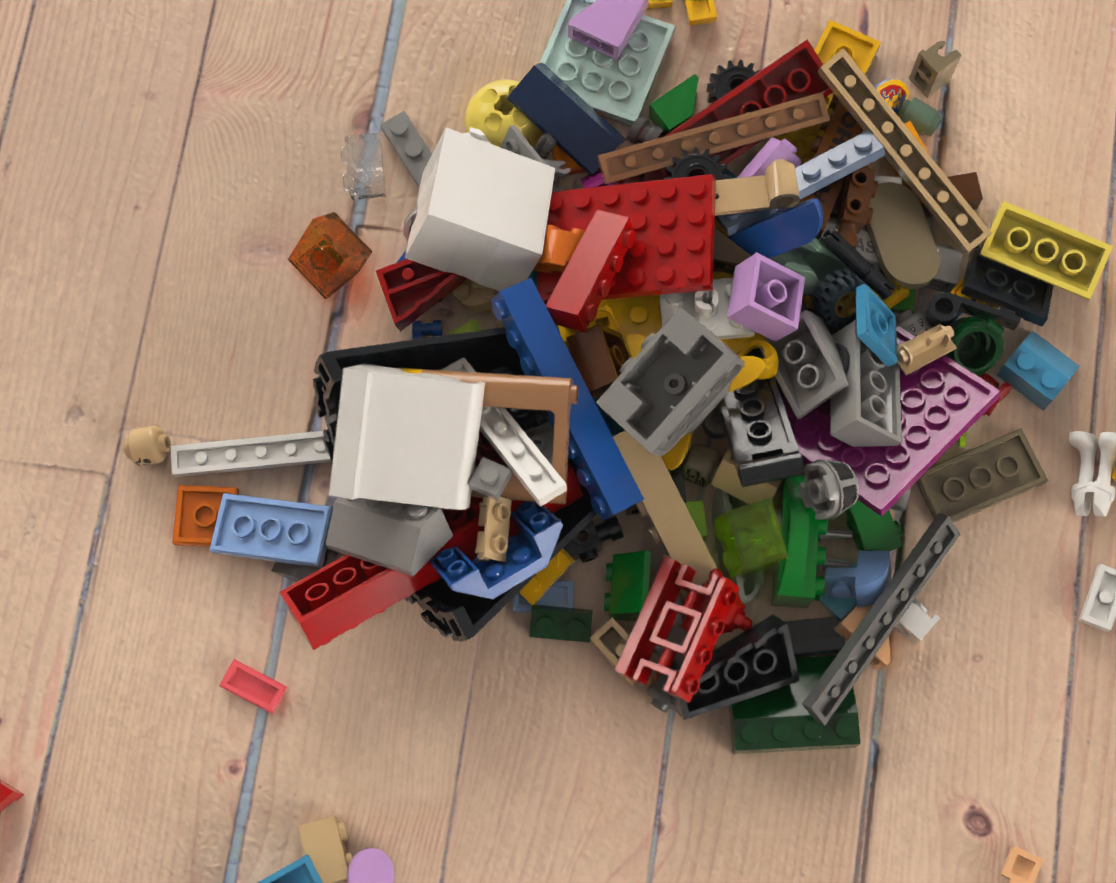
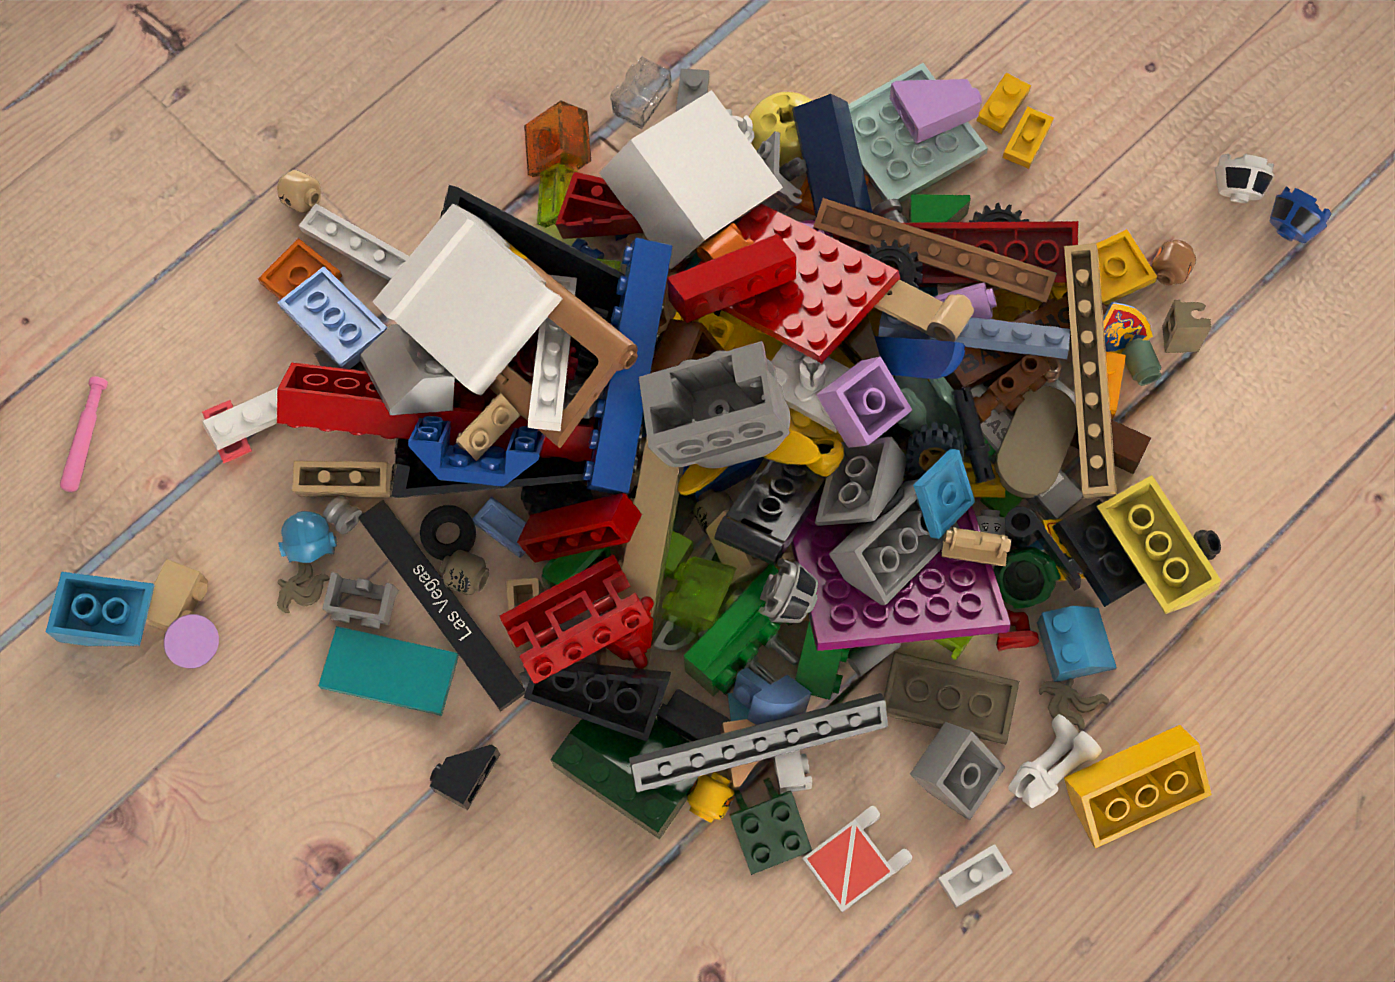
camera: 40 degrees right, 5 degrees down
(141, 794) = (79, 449): none -> bright pink piece
(265, 659) = (242, 420): none -> white plate
(364, 298) = (552, 192): none -> clear neon green panel
(387, 654) = (343, 478): none -> tan brick
(395, 723) = (306, 537): none -> dark azure cap
(407, 683) = (342, 514): none -> light grey wheel
(425, 771) = (302, 595): none -> dark tan piece
(473, 729) = (363, 588): none -> light grey window
(490, 479) = (510, 381): light grey plate -> none
(515, 648) = (442, 515): none -> black tyre
(543, 694) = (442, 605): none -> black tile
(544, 580) = (514, 504): yellow plate -> none
(544, 656) = (464, 572): none -> dark tan head
(545, 778) = (388, 670): none -> teal tile
(561, 623) = (500, 555): dark green plate -> none
(616, 554) = (579, 528): none -> red brick
(673, 814) = (464, 774): none -> black slope
(873, 687) = (710, 797): none -> yellow head
(883, 21) = (1174, 262): none -> medium nougat head
(935, 678) = (769, 830): none -> dark green plate
(1008, 656) = (851, 863): none -> coral flag
(1030, 528) = (958, 769): none -> light grey slope
(1057, 414) = (1059, 703): none -> dark tan piece
(1073, 222) = (1208, 543): none -> black plate

